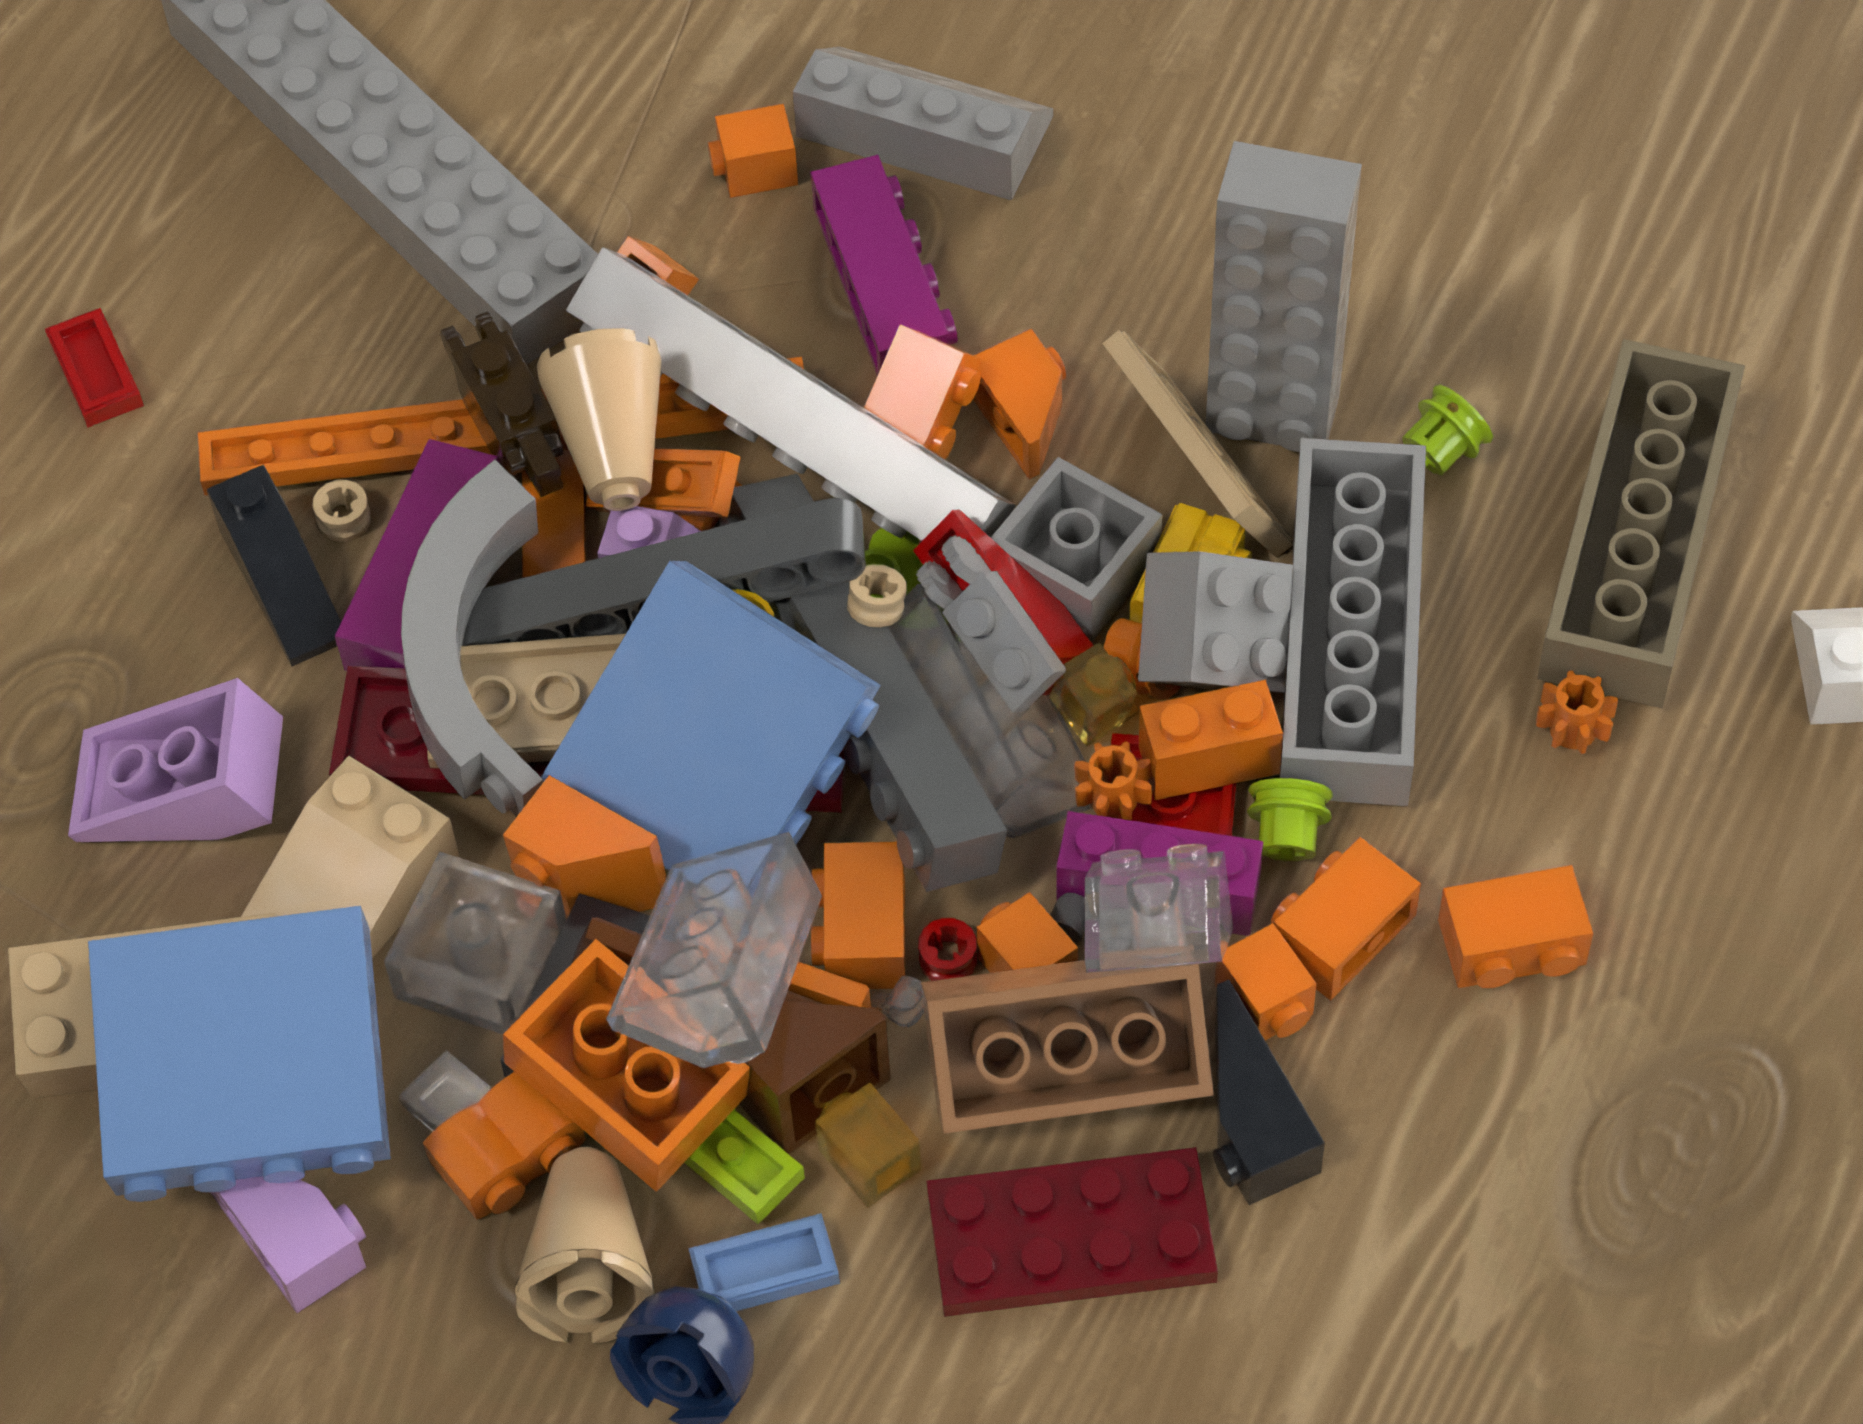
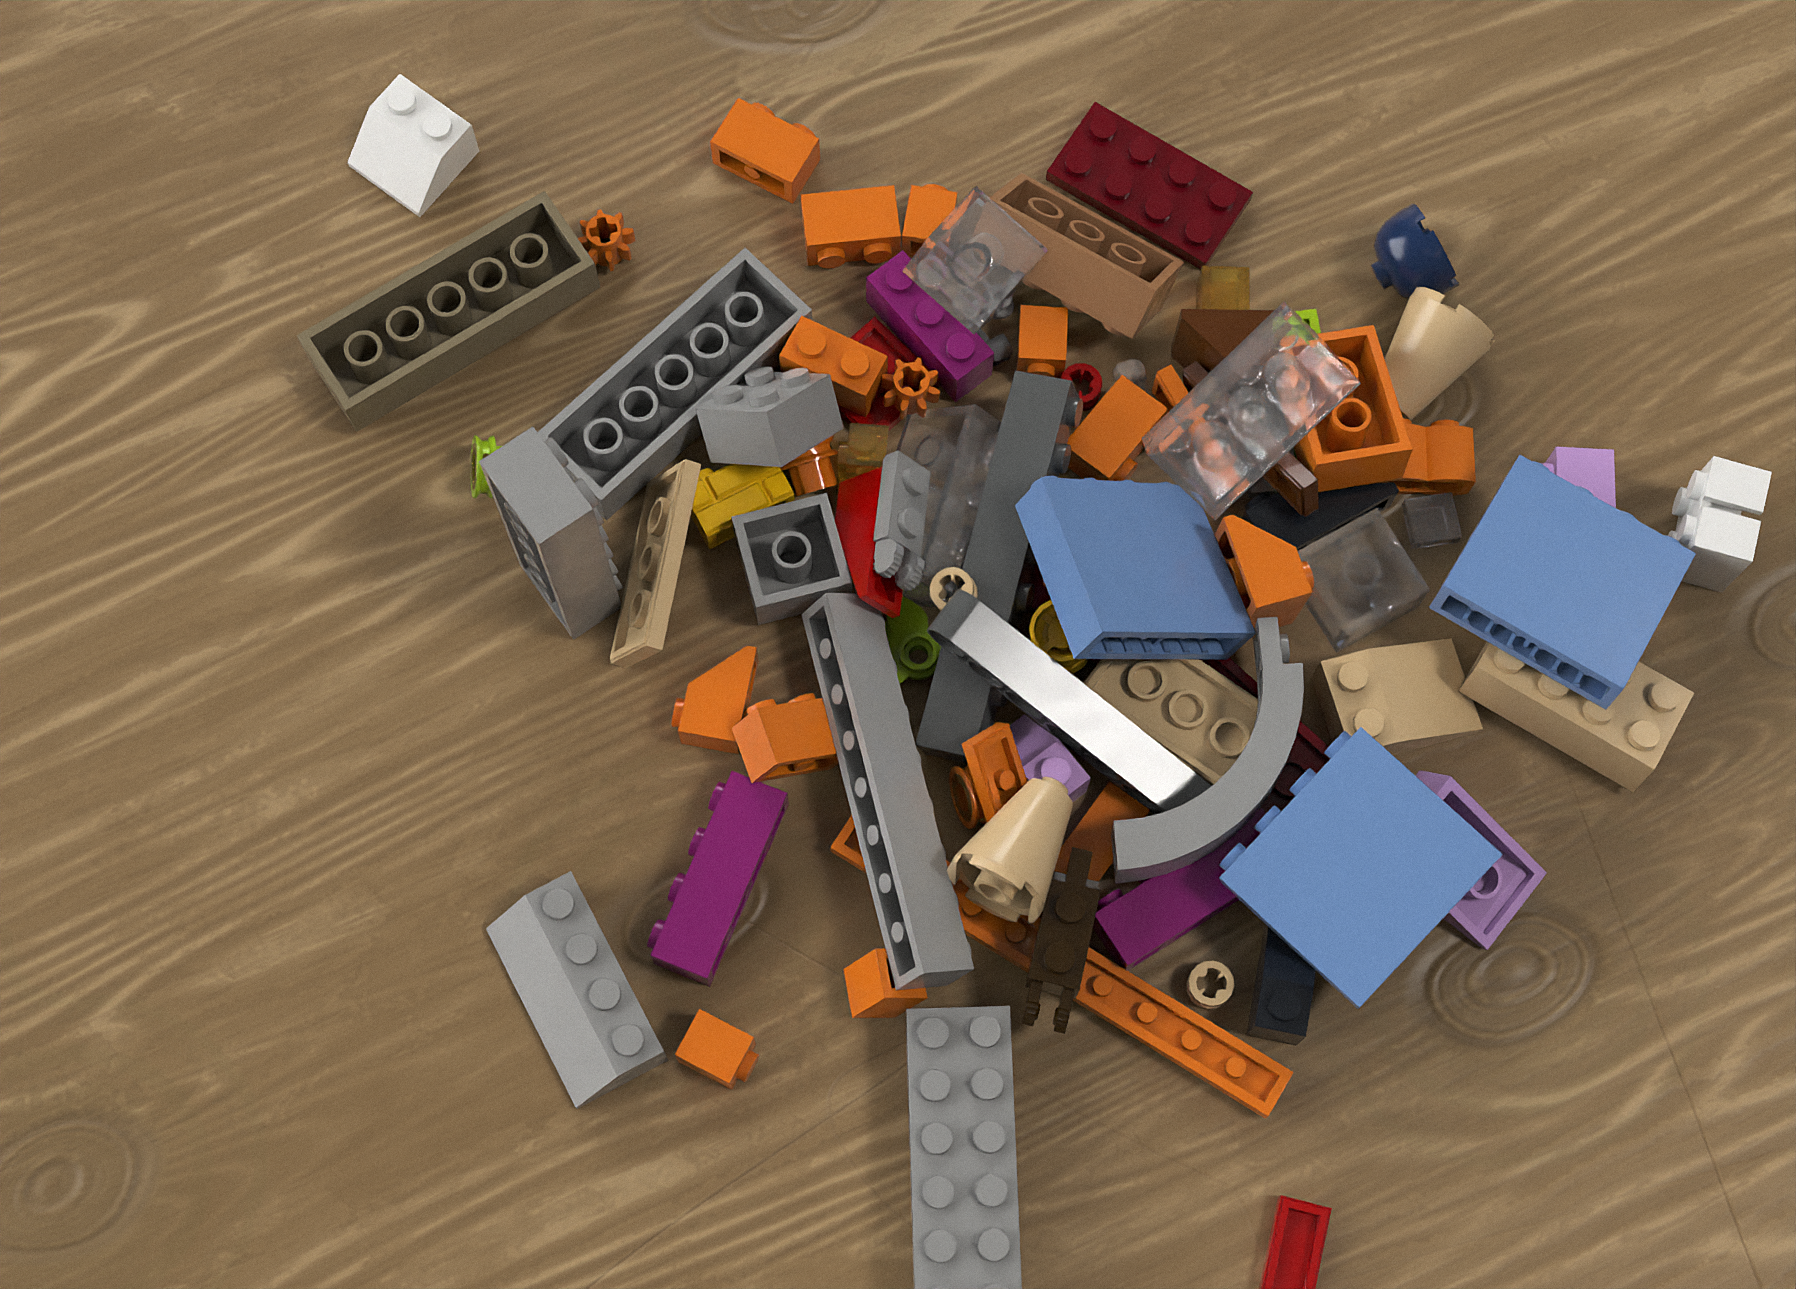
camera: 145 degrees left, 15 degrees up
(109, 1286) = (1713, 522): none -> white piece
(257, 628) = (1357, 865): none -> medium blue brick
(767, 1263) = (1328, 290): medium blue tile -> none
(1261, 1124) = (1006, 147): black slope -> none
(1289, 816) = (829, 299): lime piece -> none

